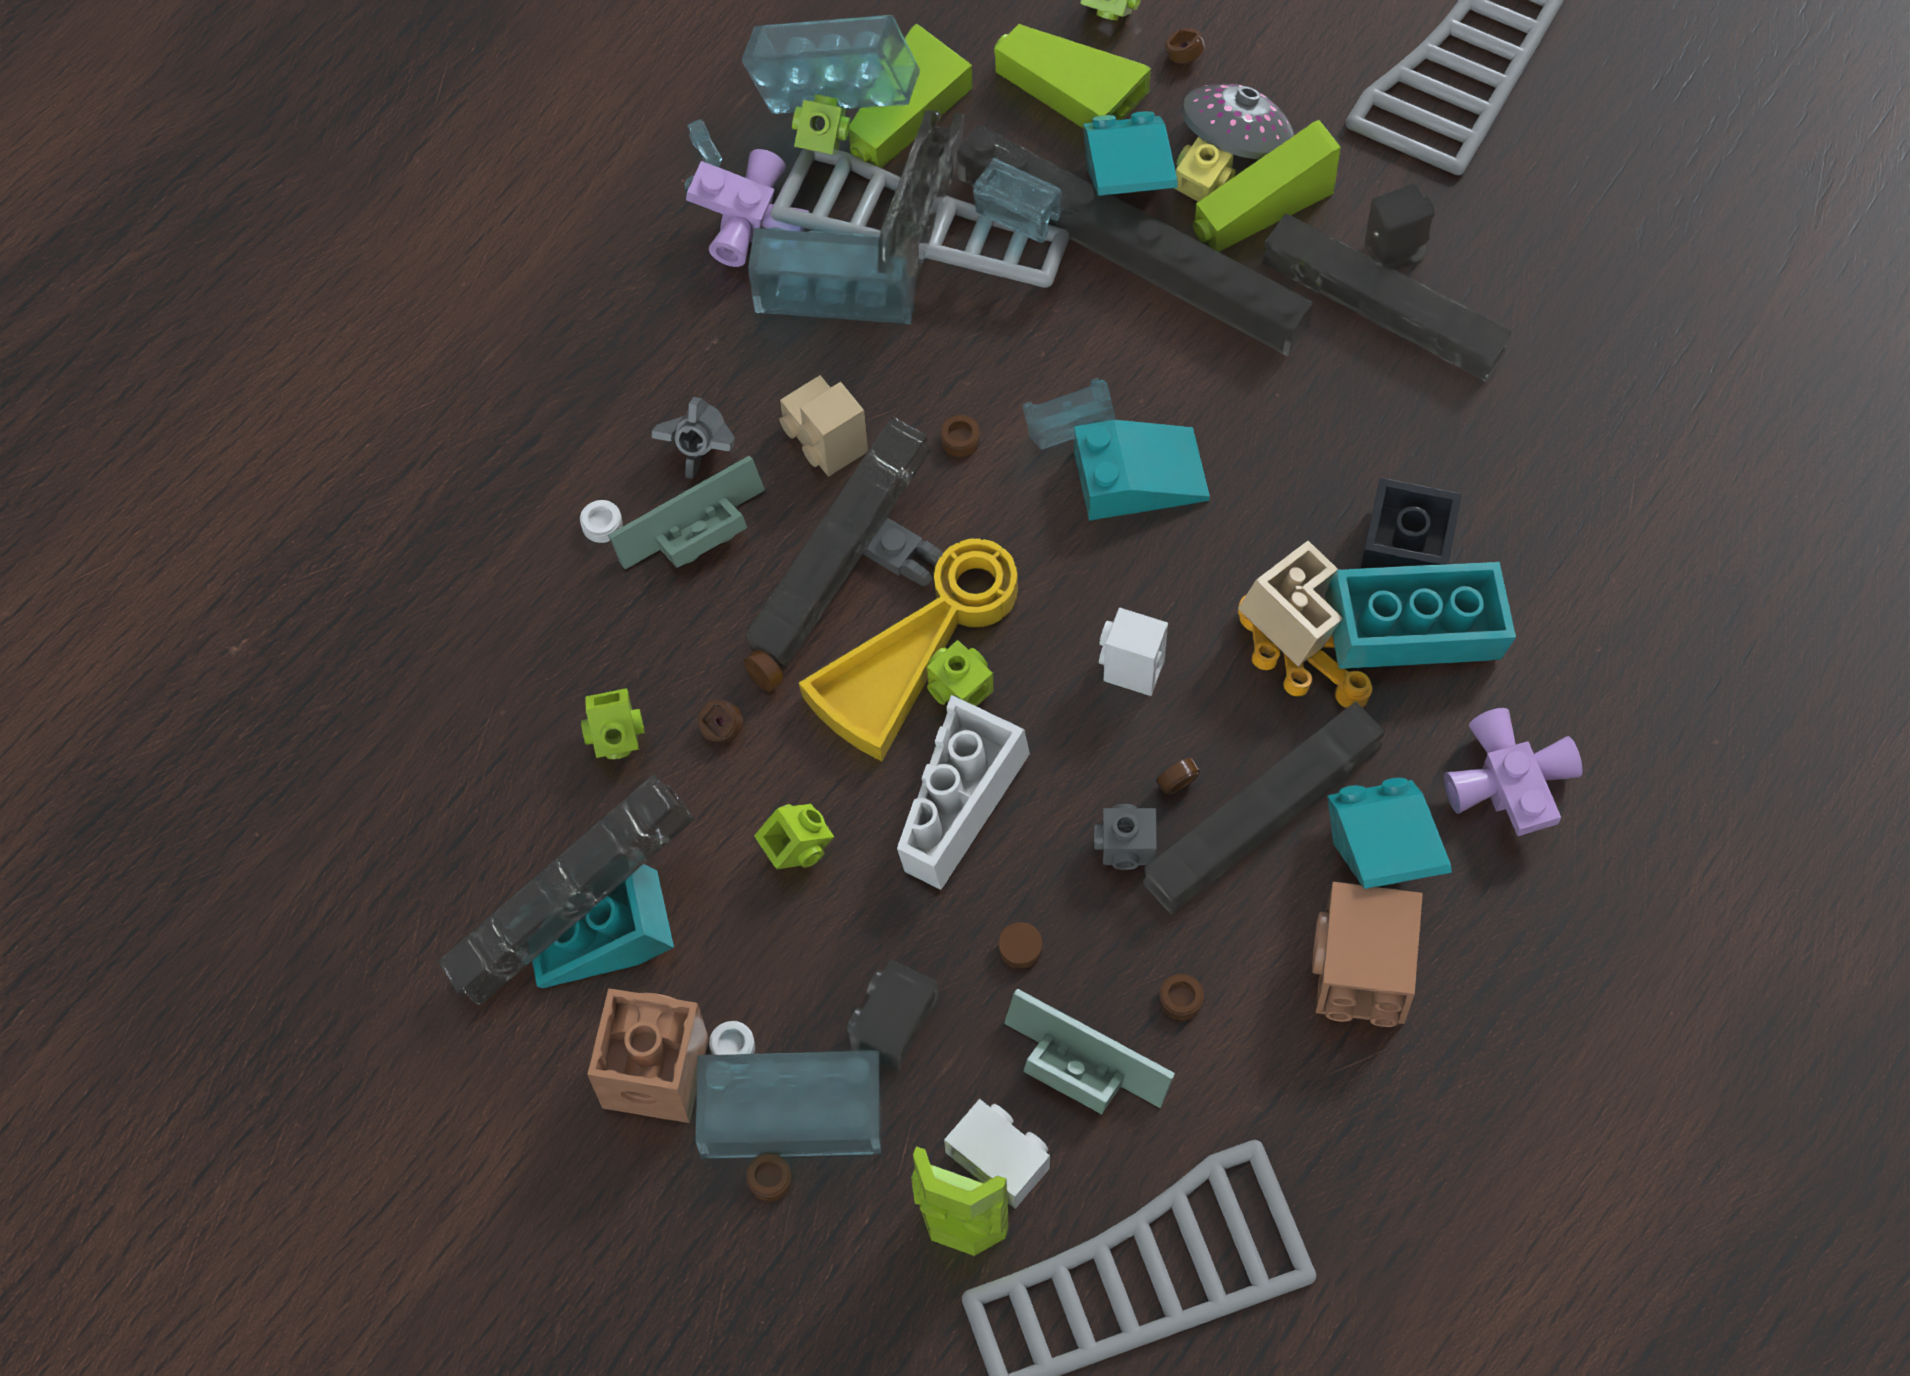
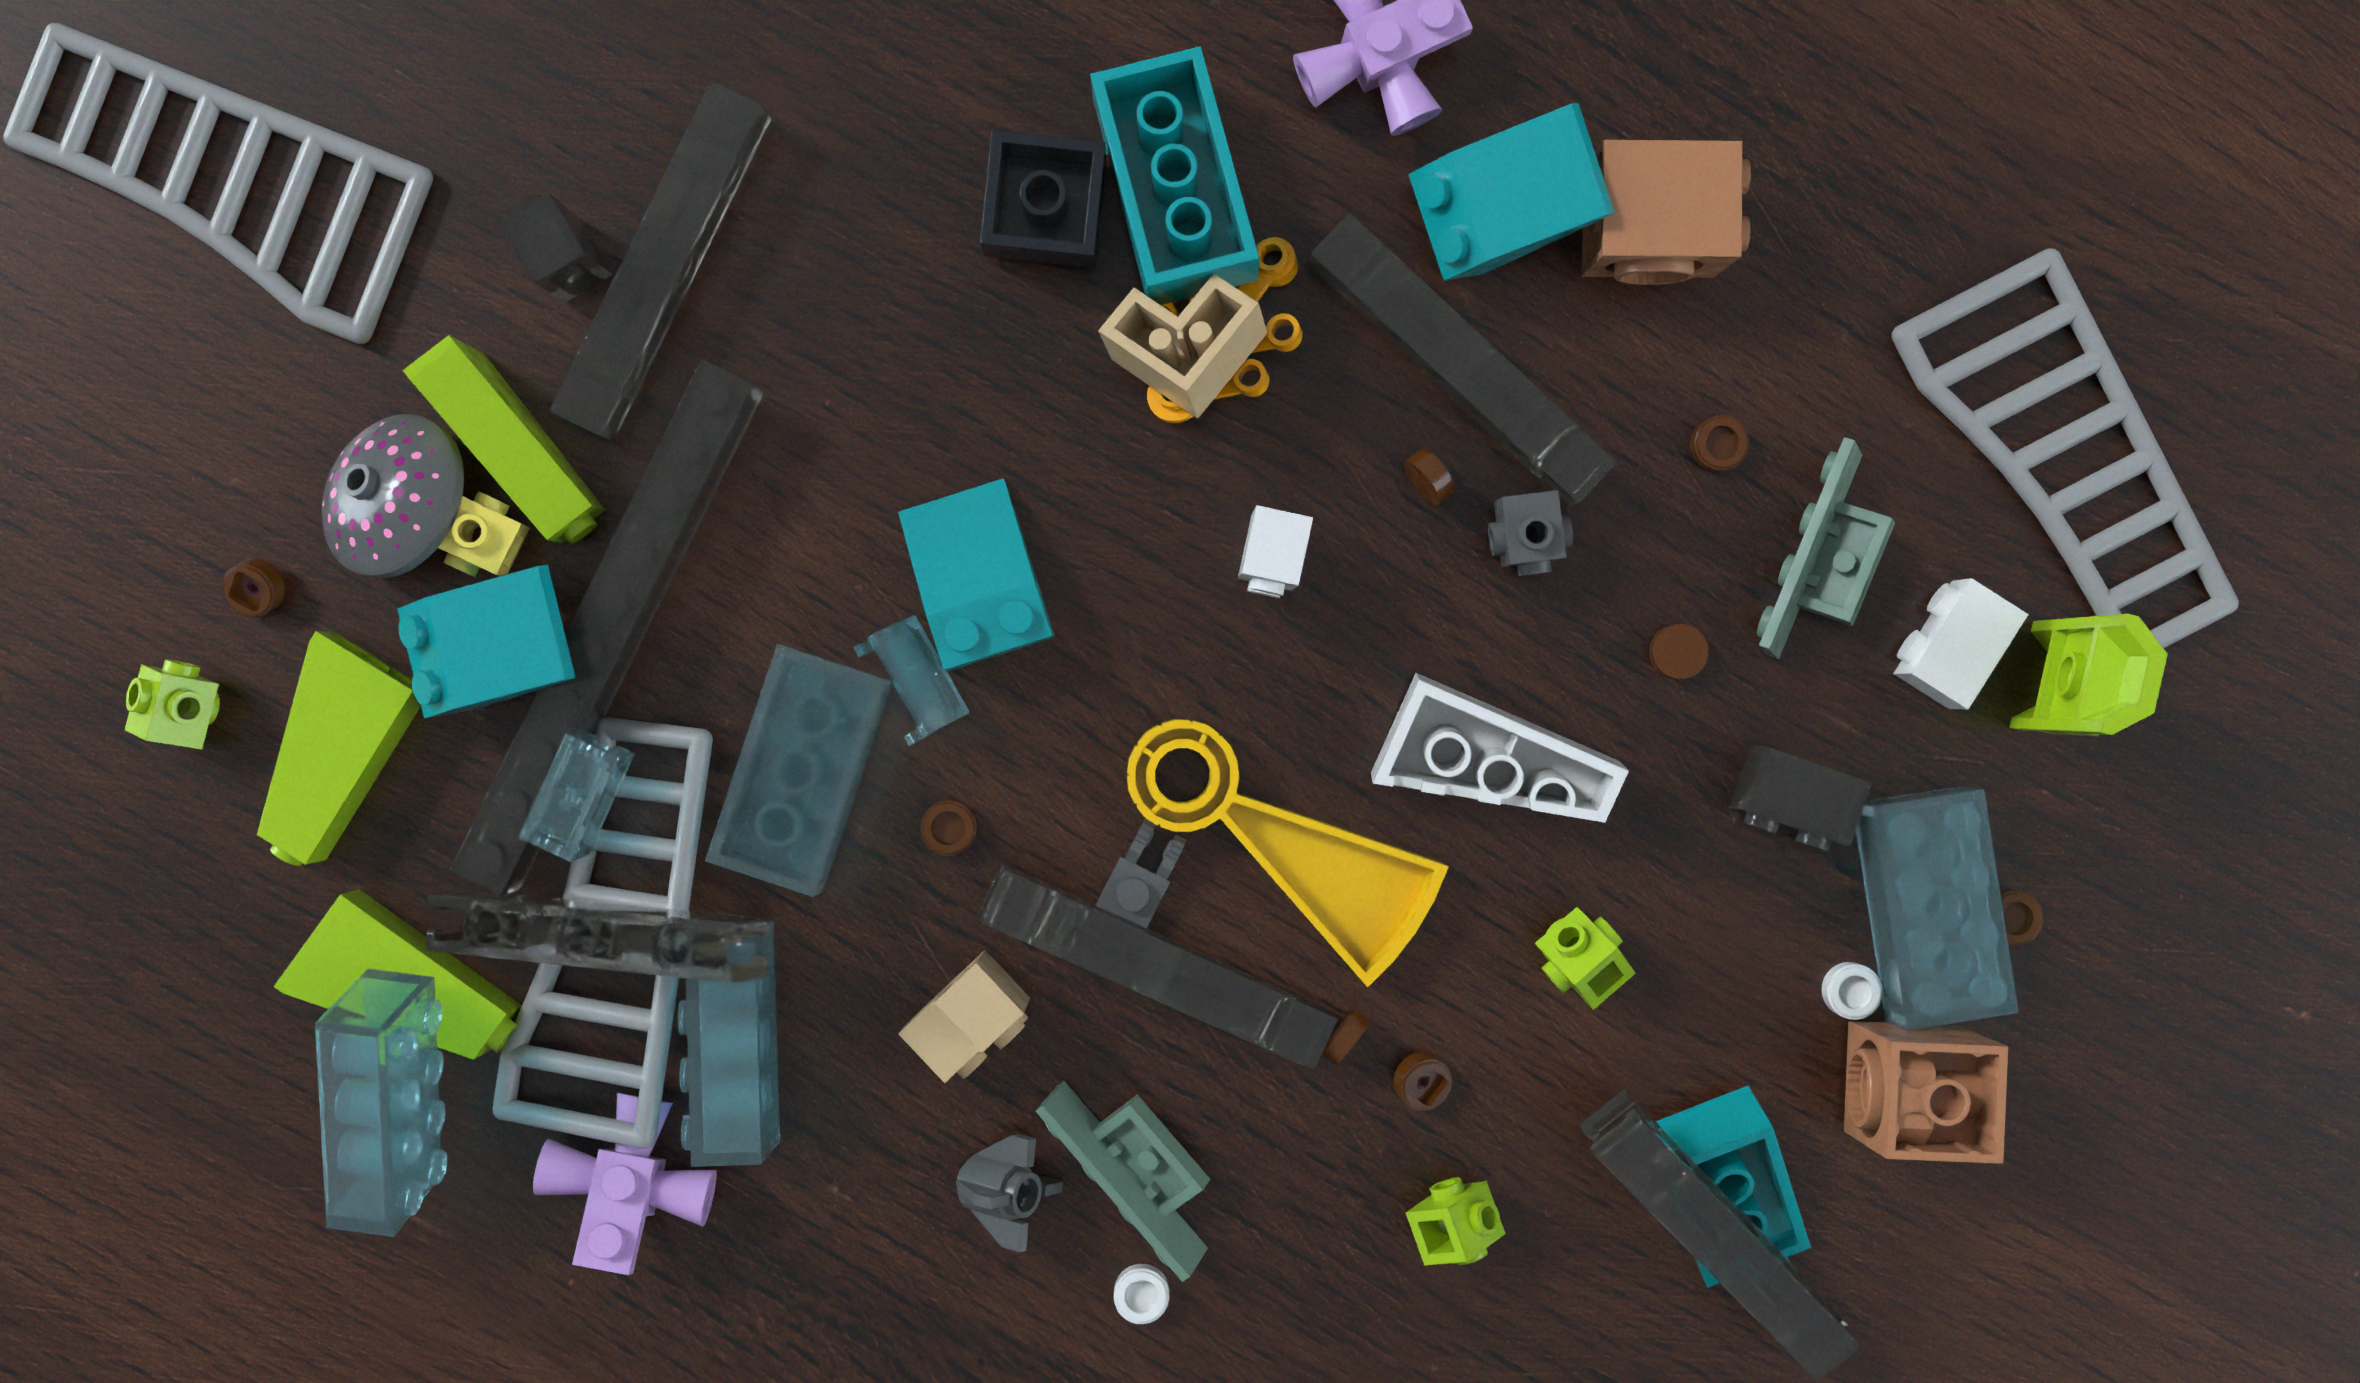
camera: 95 degrees left, 25 degrees up
(701, 139) = (523, 1253): clear light blue arm -> none
(809, 134) = (482, 1100): lime brick -> none
(959, 674) = (1352, 775): lime brick -> none
(1015, 337) = (799, 770): none -> clear light blue brick

